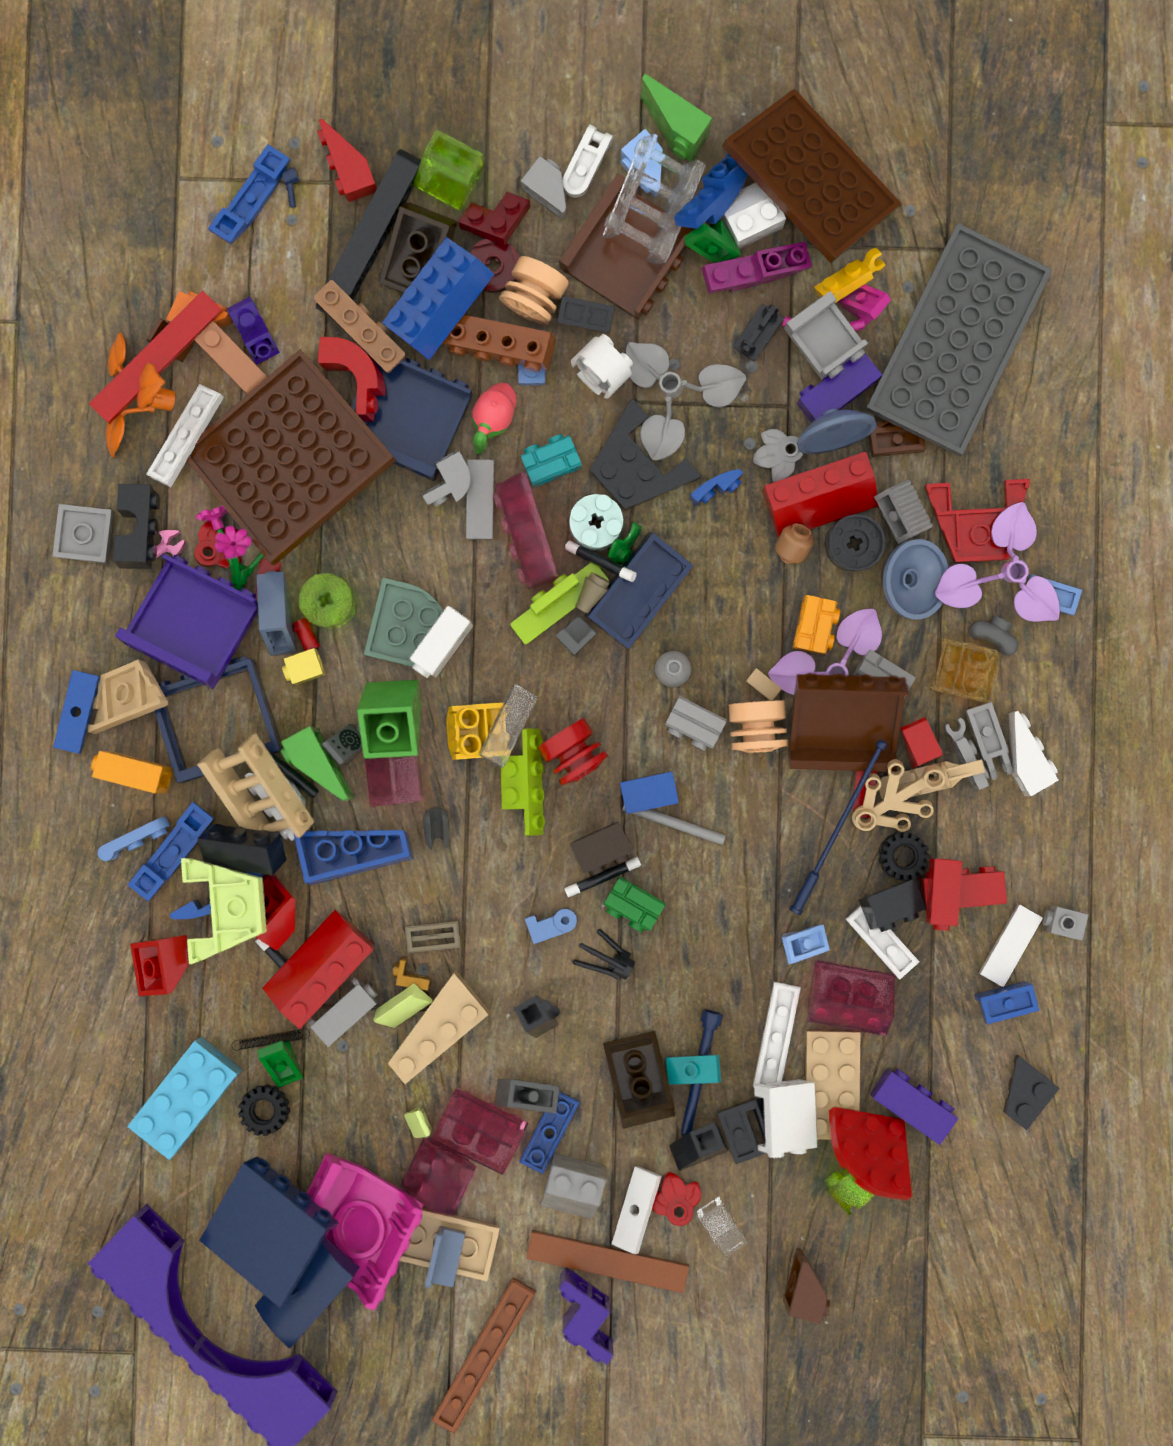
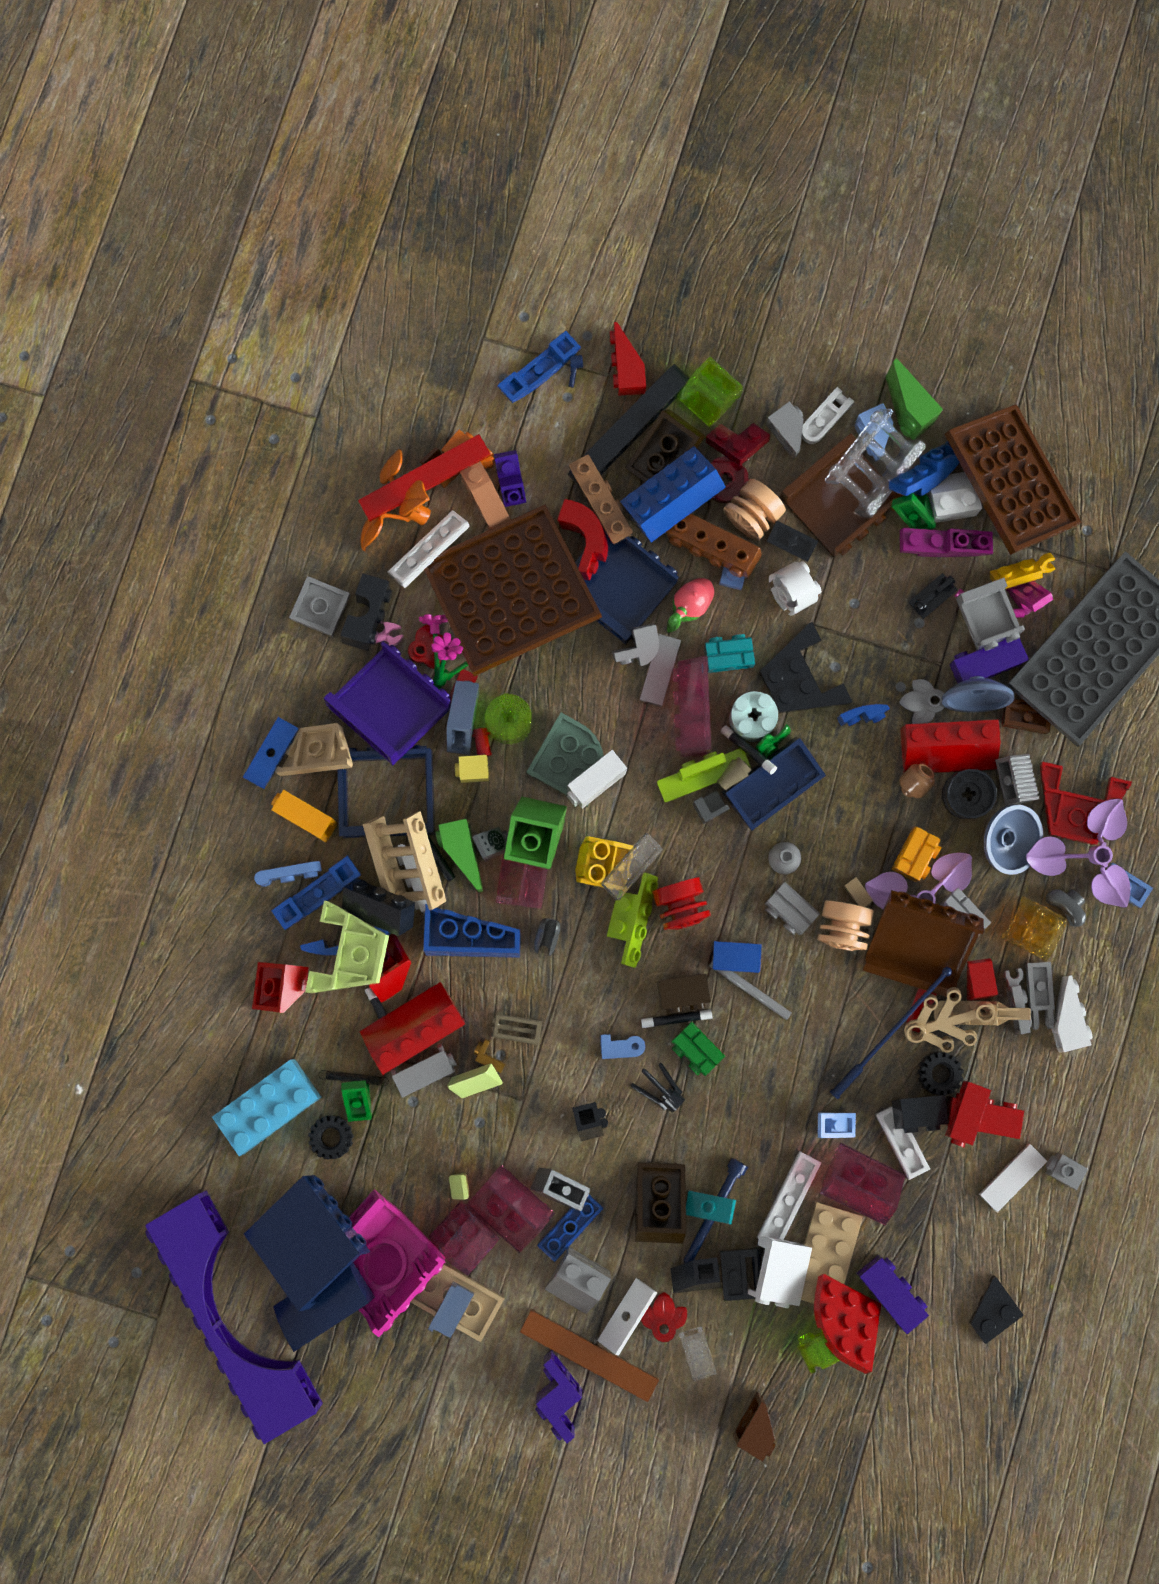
camera: 15 degrees right, 5 degrees down
(443, 1024) = (505, 1106): tan wedge -> none
(483, 1355) = (458, 1407): dark orange tile -> none
(650, 363) = (835, 596): light grey plant -> none
(1007, 1002) = (998, 1226): blue panel -> none

